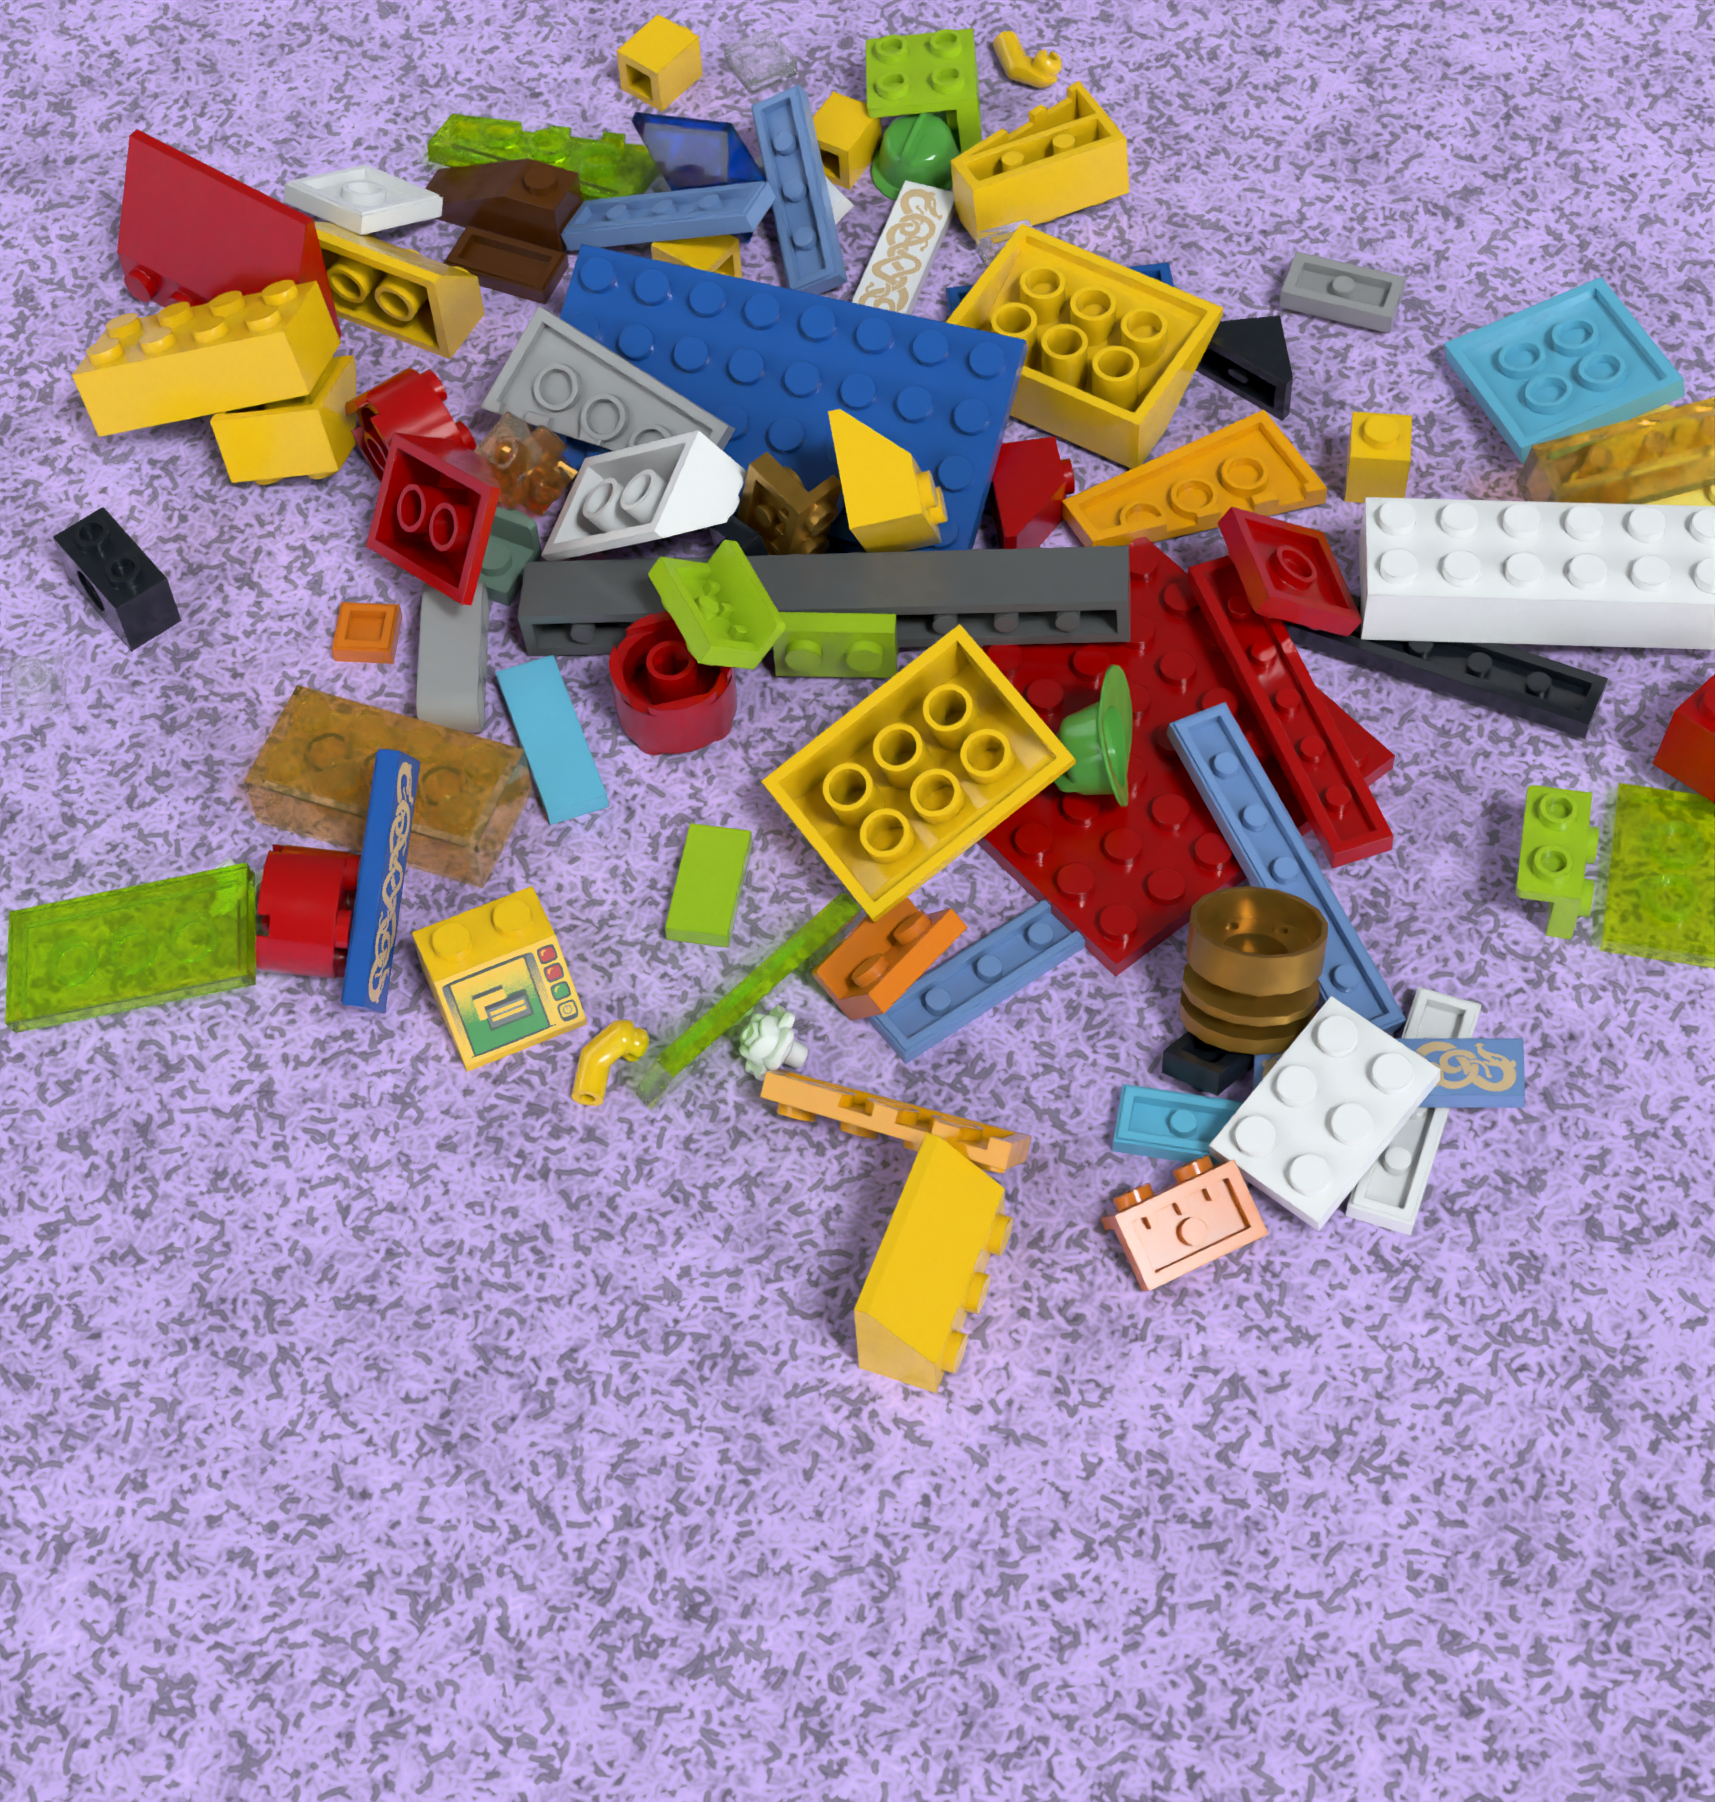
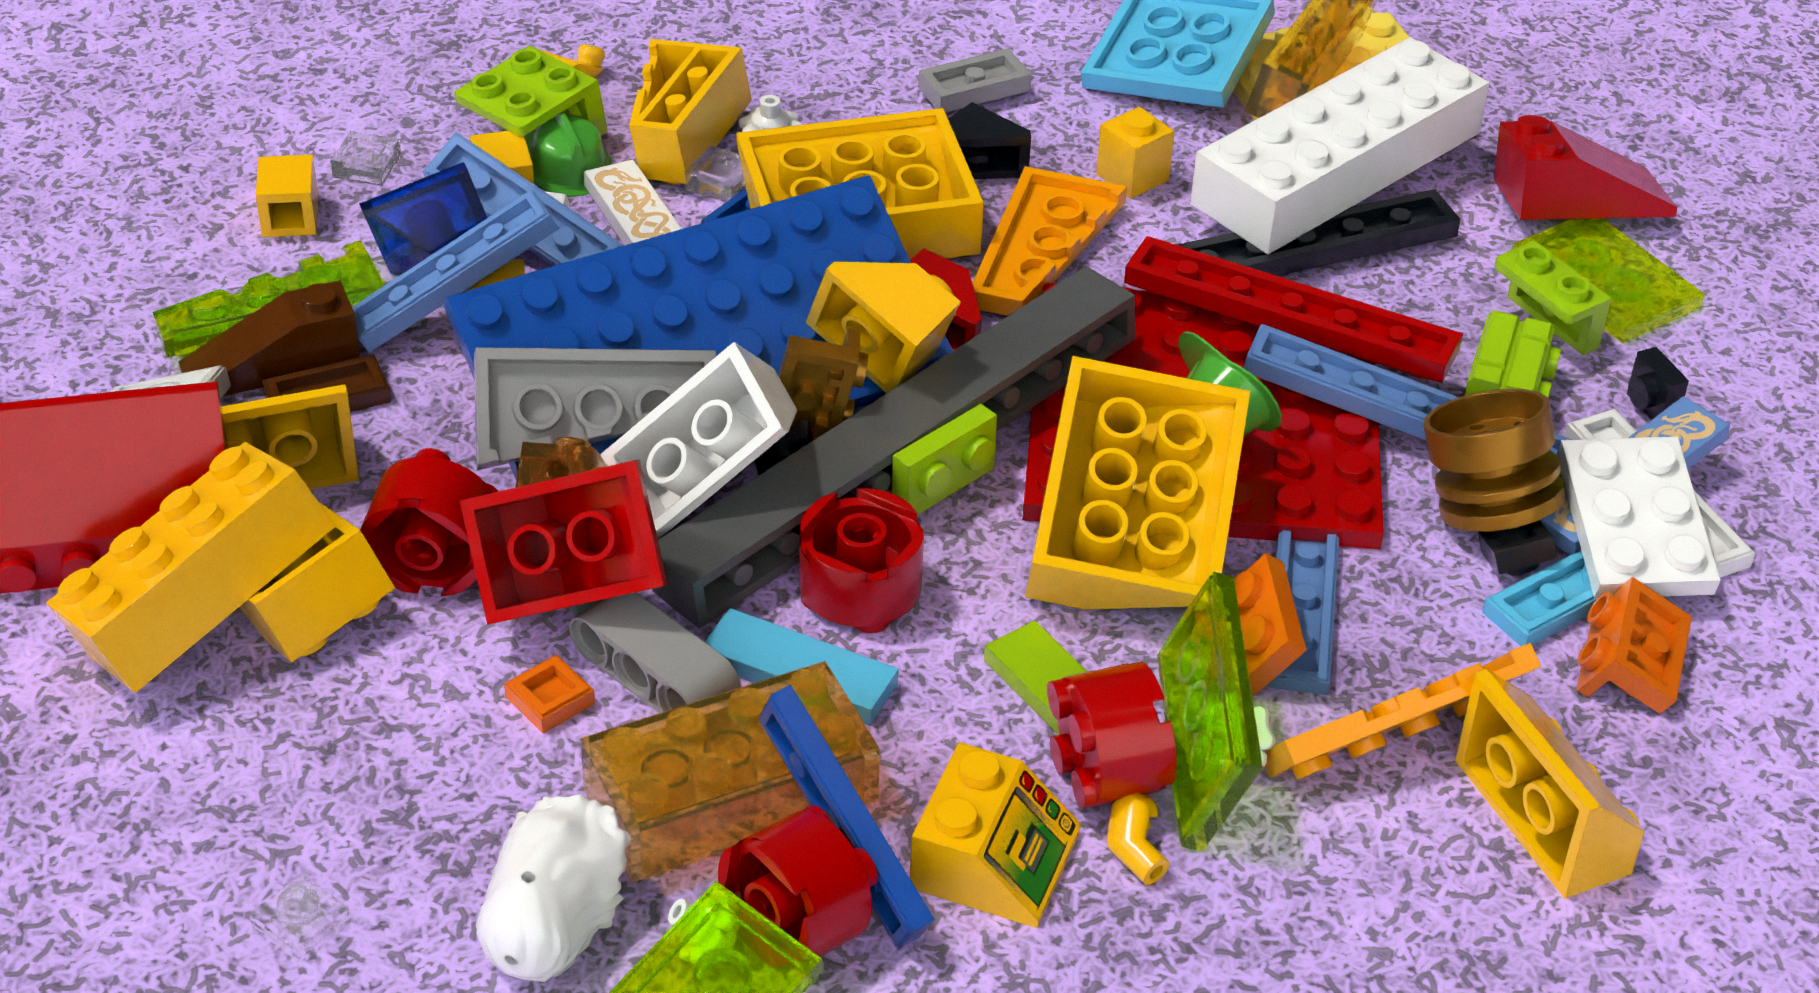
camera: 50 degrees left, 15 degrees down
(117, 578) = (288, 784): black brick -> none
(167, 784) = (552, 886): none -> white piece
(654, 965) = (1111, 734): none -> red brick
(719, 607) = (870, 457): lime bracket -> none
(1110, 227) = (768, 116): none -> white plant
(1289, 572) = (1202, 232): red plate -> none
(1426, 902) = (1514, 355): none -> lime brick
(1537, 1010) = (1655, 382): none -> black plate

